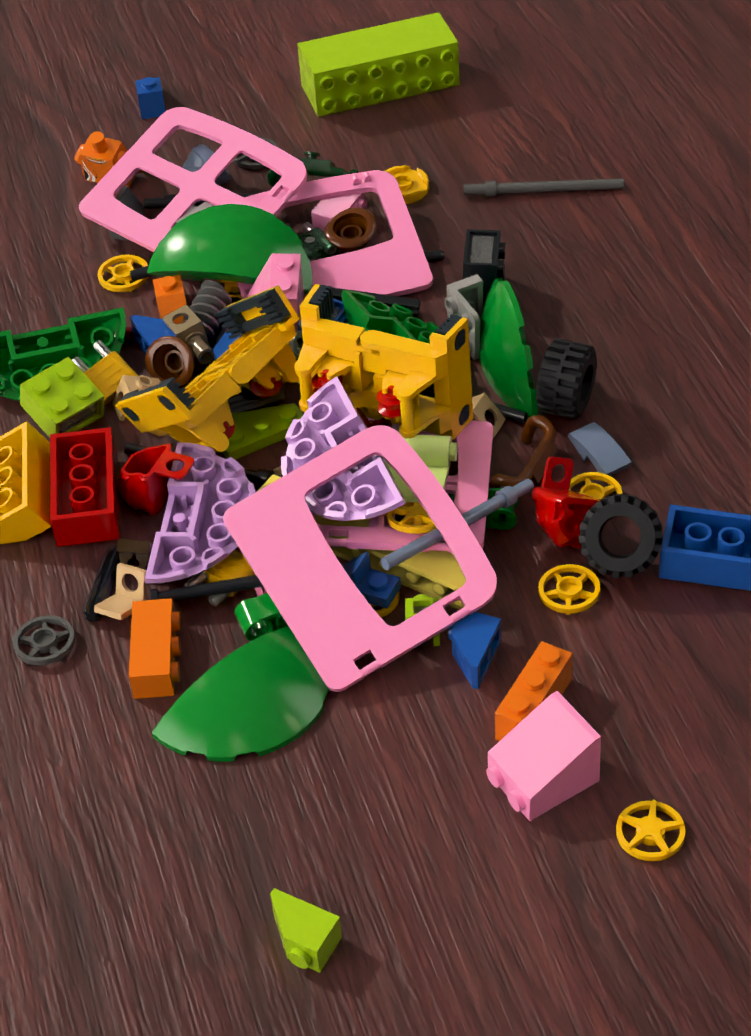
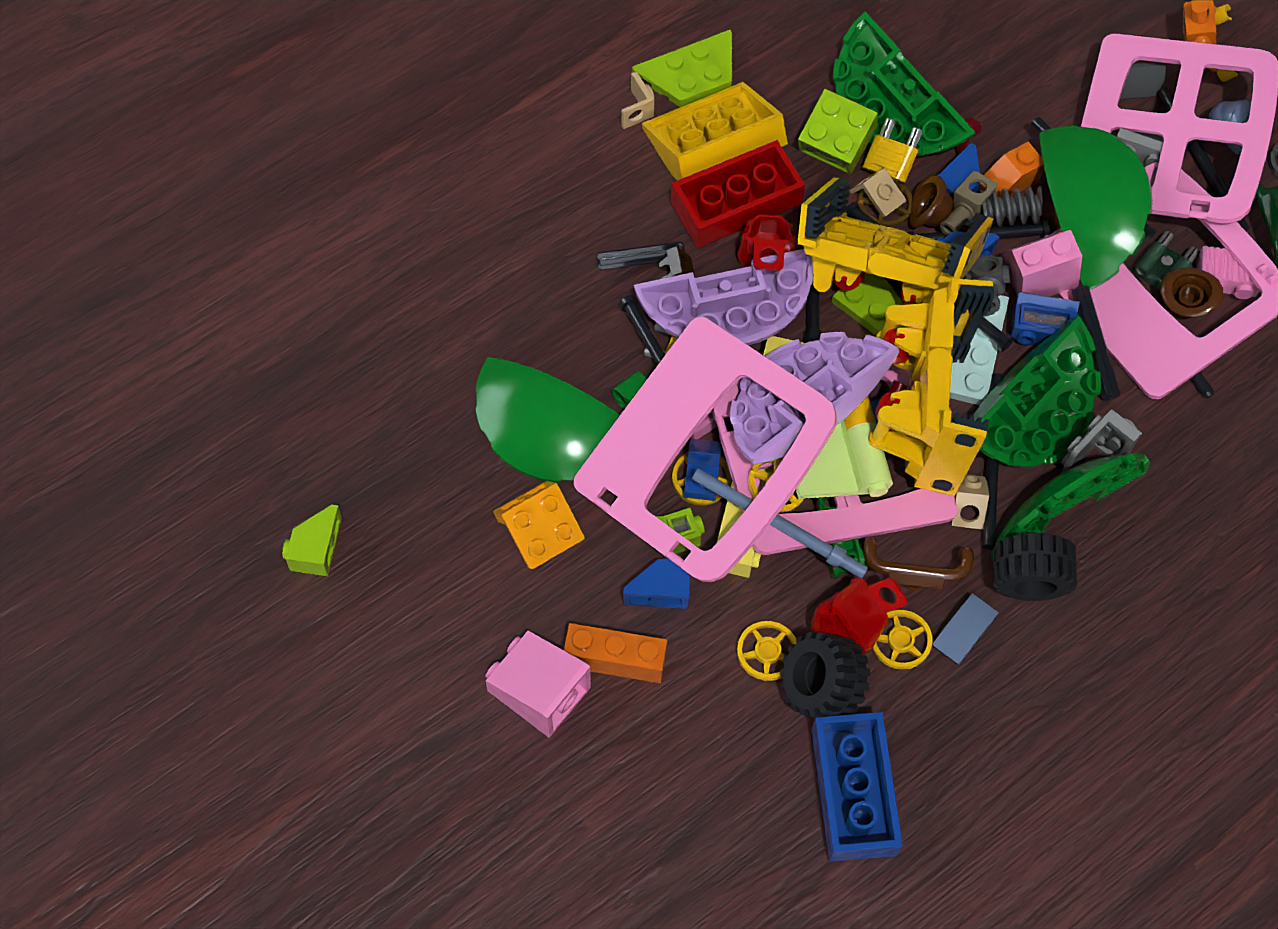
camera: 65 degrees right, 20 degrees up
(44, 640) = (560, 236): dark grey wheel -> none
(120, 604) = (617, 278): tan bracket -> none
(121, 273) = (1051, 111): yellow wheel -> none
(154, 648) = (572, 323): orange brick -> none
(361, 721) = (540, 523): none -> light orange bracket
(483, 257) = (1180, 437): black piece -> none
(650, 830) = (502, 795): yellow wheel -> none

